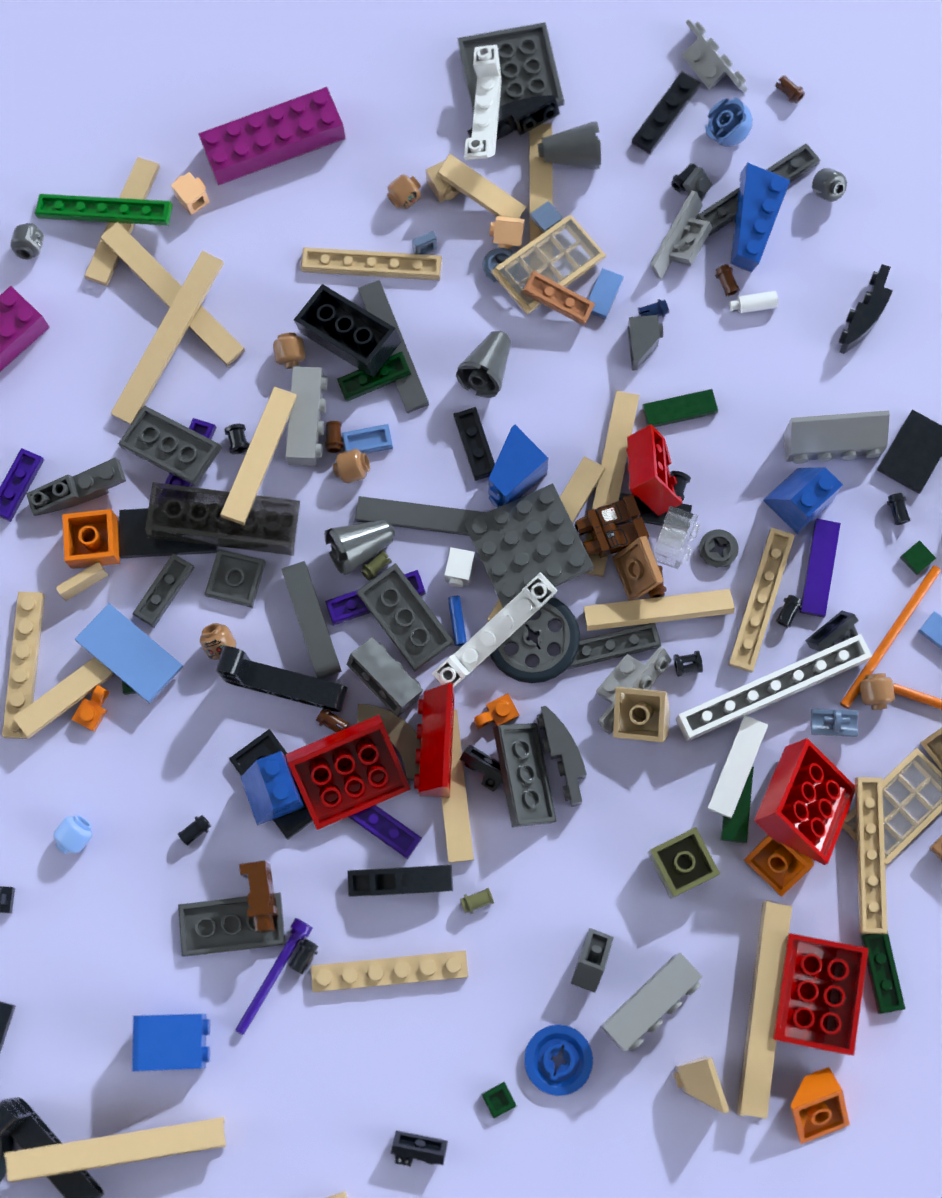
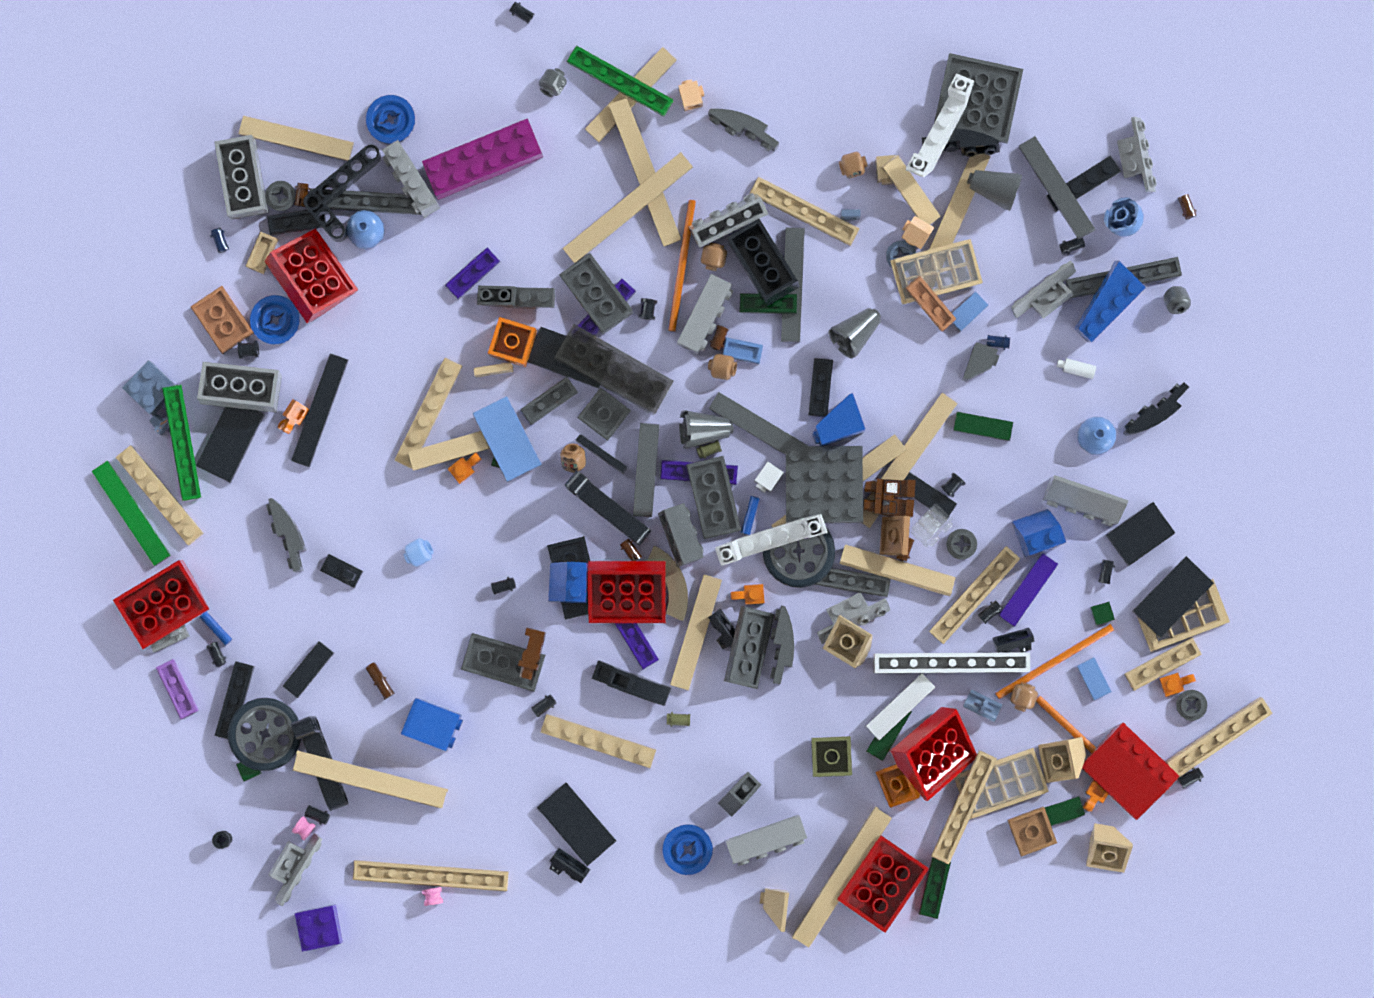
camera: 25 degrees right, 10 degrees up
(85, 1015) = (379, 680): none -> reddish brown axle
(250, 623) = (601, 454): none -> black tile
(252, 358) = (681, 266): none -> orange piece
(256, 198) = (737, 122): none -> dark grey slope
(258, 456) = (658, 334): tan tile -> none
(272, 135) = (772, 75): magenta brick -> none
(288, 303) = (728, 220): none -> light grey brick
(299, 931) = (547, 687): dark purple piece -> none
(406, 1089) = (576, 824): none -> black tile
(436, 742) = (698, 596): red slope -> none
(498, 1099) = (636, 857): dark green tile -> none
(545, 217) = (951, 233): sand blue tile -> none
(640, 124) = (1056, 188): none -> dark grey tile
(650, 471) = (936, 466): red wedge -> none
(695, 658) = (900, 618): black bush -> none
(698, 182) = (1078, 255): dark grey plate -> none
(728, 282) = (1065, 341): reddish brown pin -> none
(812, 364) = (1096, 435): none -> medium blue cylinder
(819, 1106) = (847, 955): orange slope -> none

